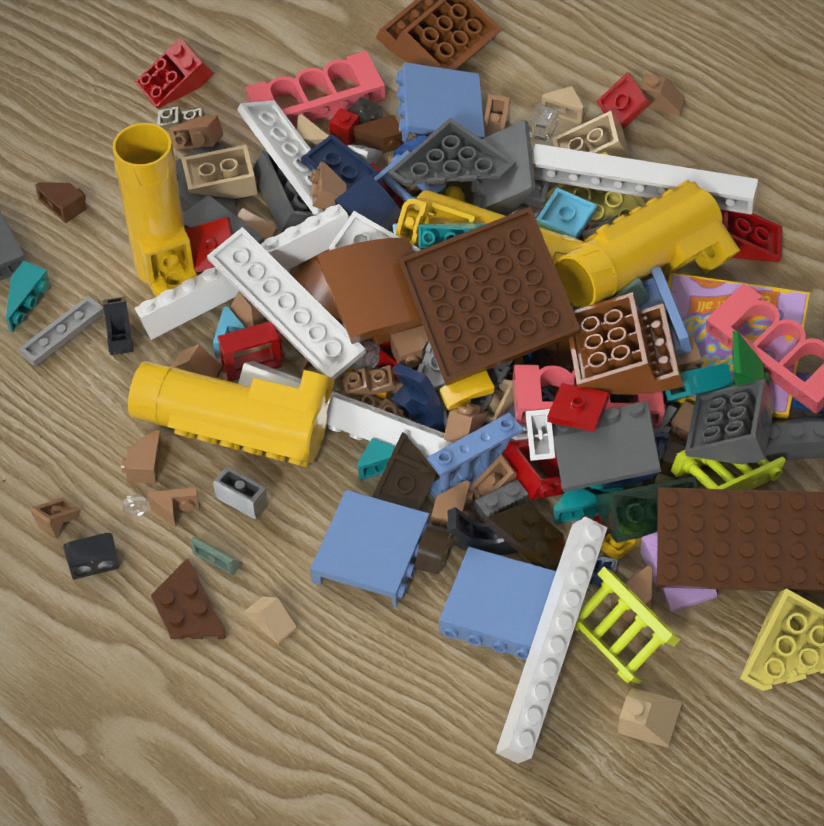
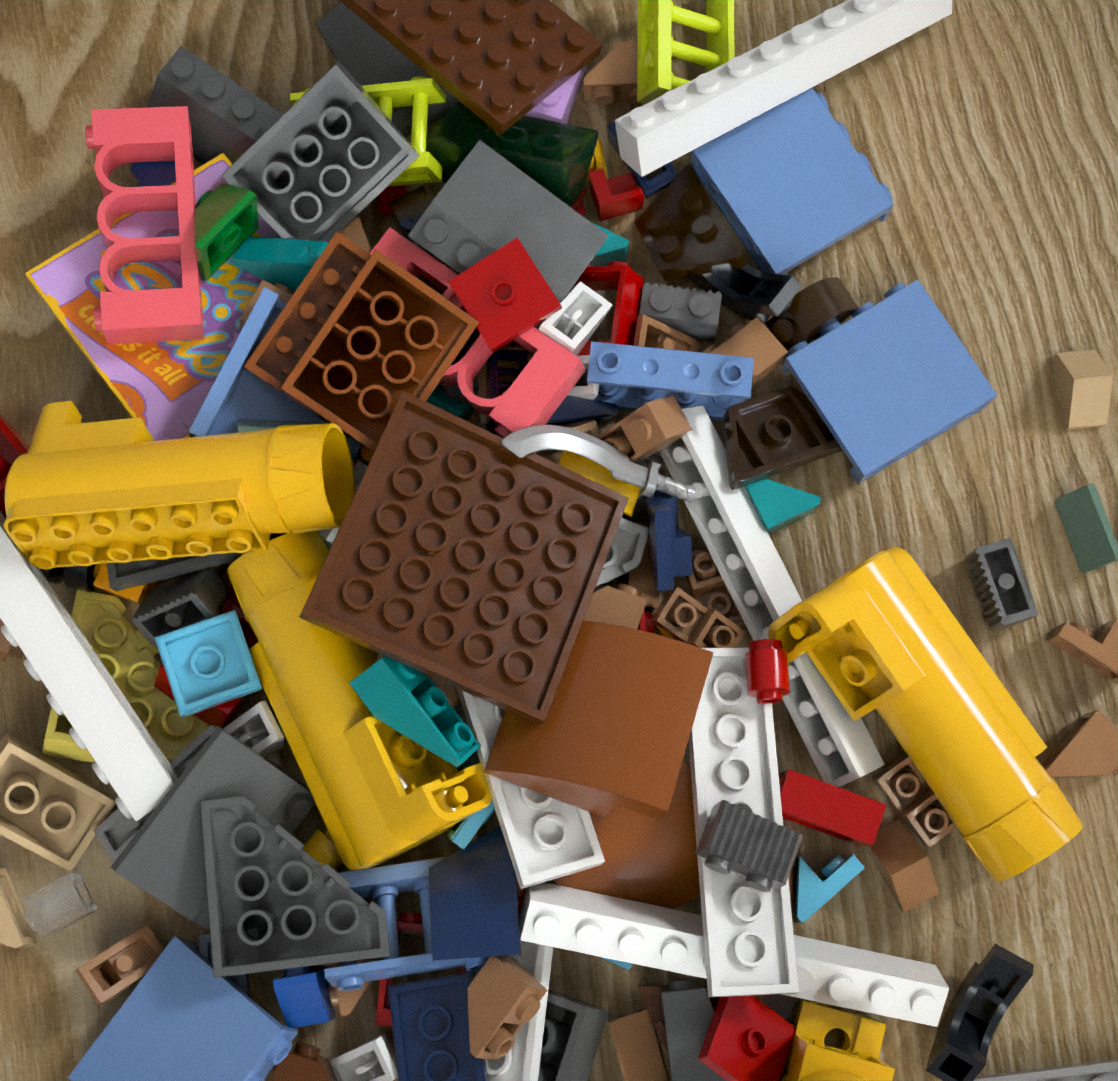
camera: 140 degrees left, 25 degrees up
(272, 283) = (748, 846): none -> flat silver brick
(320, 359) = (767, 671): none -> red brick
(477, 392) = (563, 438): none -> light grey sword

